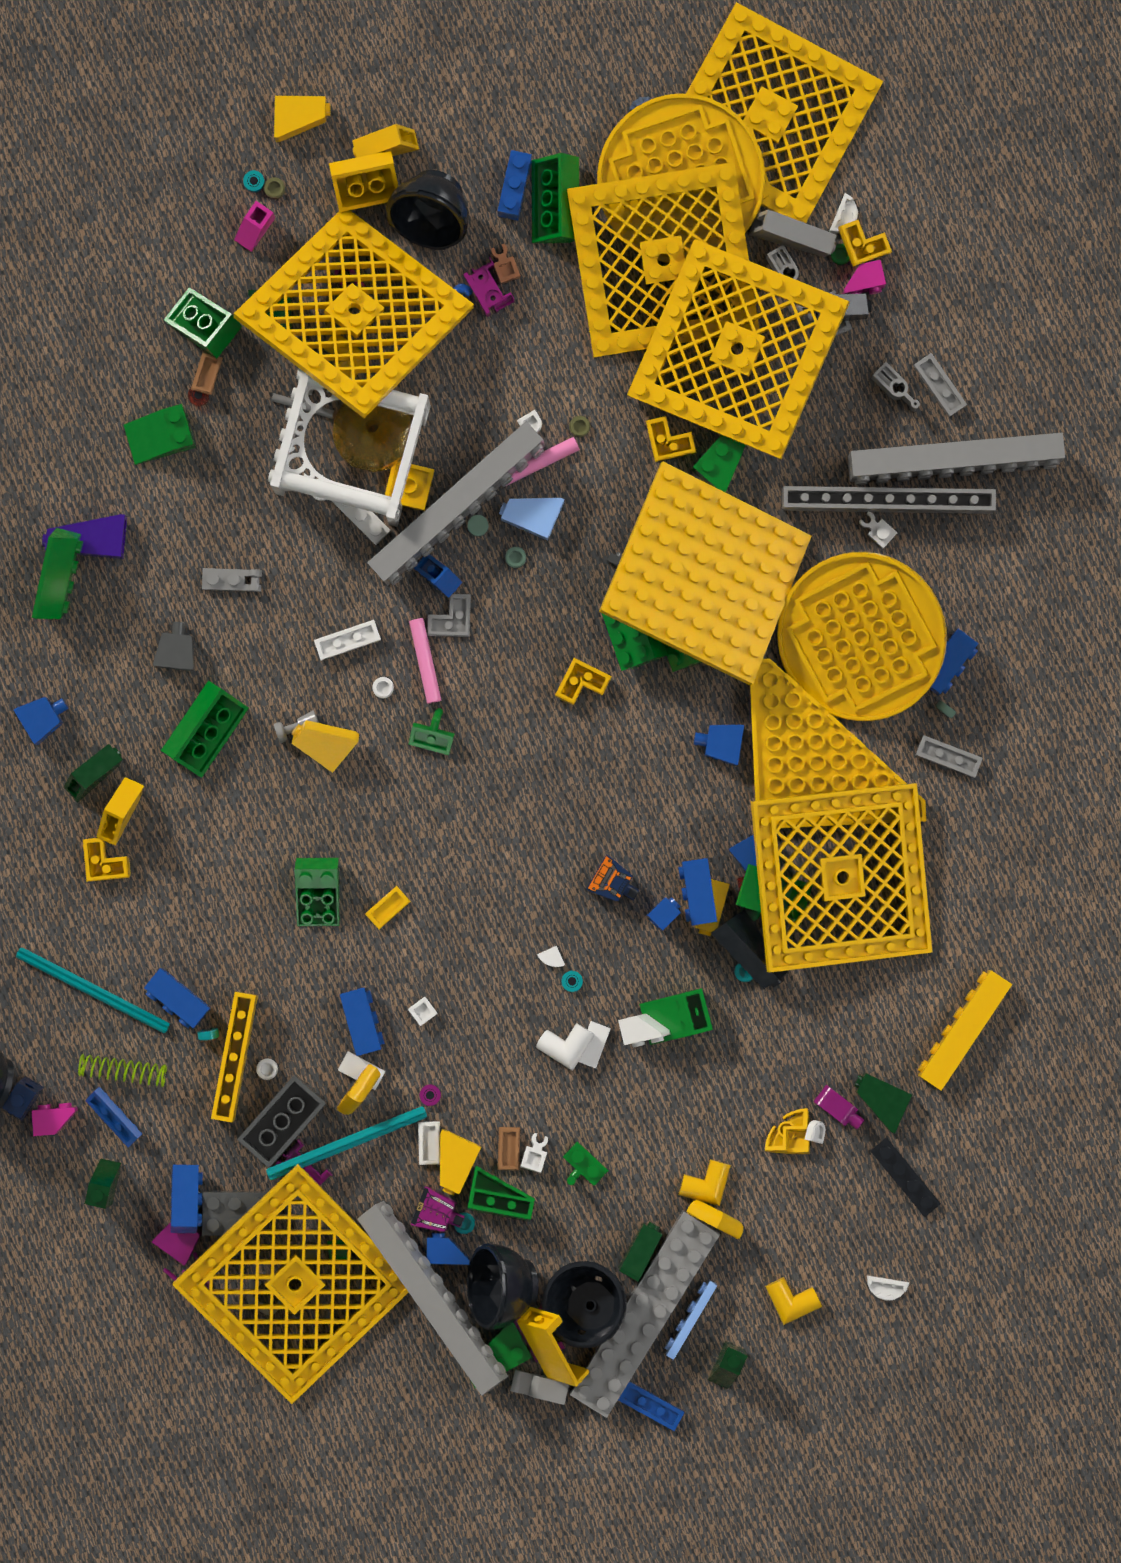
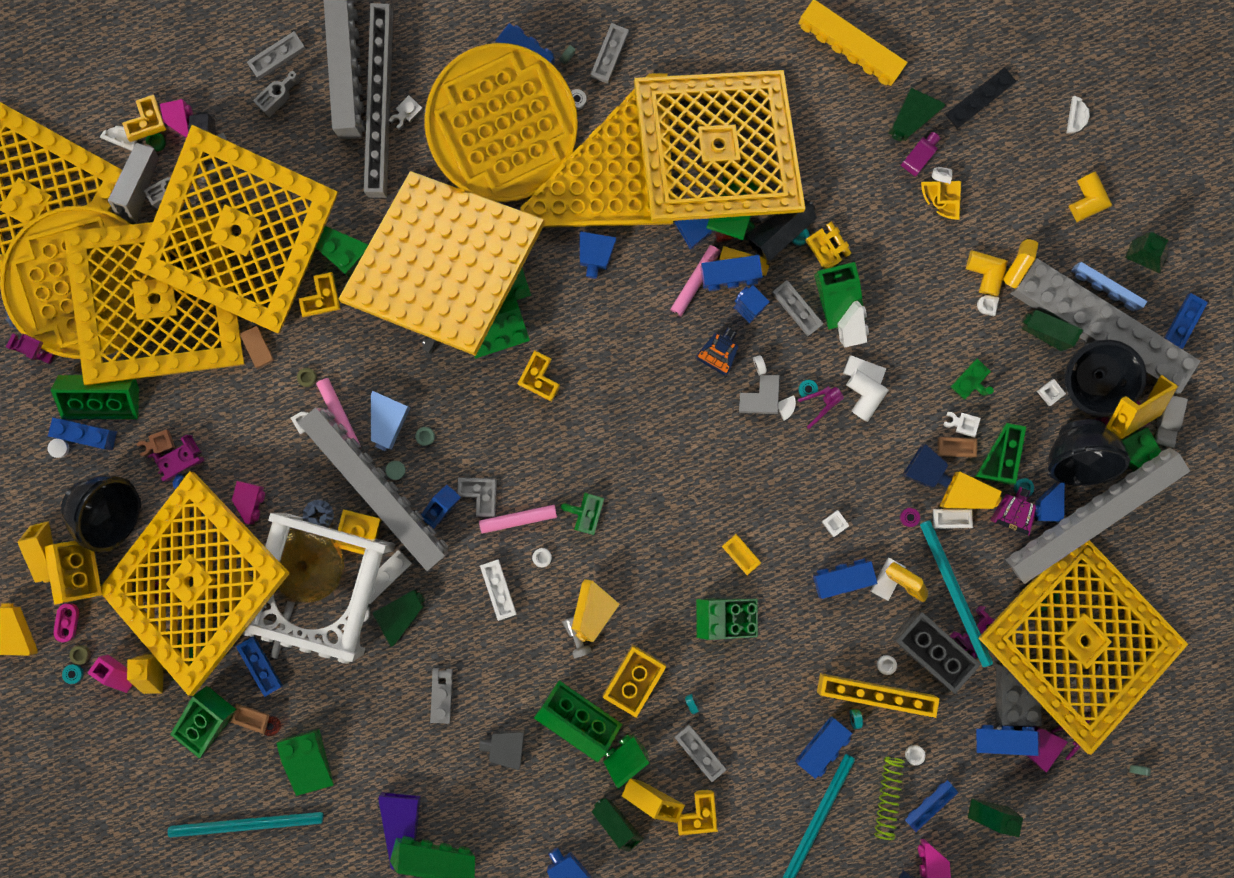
camera: 90 degrees left, 0 degrees up
(92, 371) = (245, 824): none -> teal axle
(153, 1348) = (1140, 770): none -> sand green tile
(165, 780) = (626, 759): none -> green slope
(168, 1100) = (915, 755): none -> white tile
(170, 862) = (700, 753): none -> light grey plate
(224, 853) = (691, 703): none -> teal tile
(249, 789) = (634, 681): none -> yellow brick
(254, 263) = (145, 674): none -> yellow slope
(263, 382) = (259, 666): none -> blue plate
(309, 174) = (64, 621): none -> dark pink plate
(319, 533) = (399, 615): none -> dark green slope
(436, 446) = (322, 506): none -> sand blue gear
(444, 364) = (247, 500): none -> dark pink slope
(483, 1114) = (927, 468): none -> dark blue torso
(499, 158) = (58, 448): none -> white tile
(557, 932) = (765, 401): none -> light grey tile
(561, 1007) = (831, 398): none -> magenta plant
(570, 1252) = (1051, 392): none -> white plate
(598, 926) = (760, 365): none -> white tile
(607, 128) = (30, 347): none -> magenta piece
(612, 371) = (257, 347): none -> medium nougat tile
(662, 968) = (797, 308): none -> light grey plate
(669, 1184) = (988, 305): none -> white tile
(690, 853) = (694, 282): none -> bright pink piece
(728, 998) = (823, 248): none -> yellow plate
(896, 722) = (579, 98): none -> white tile

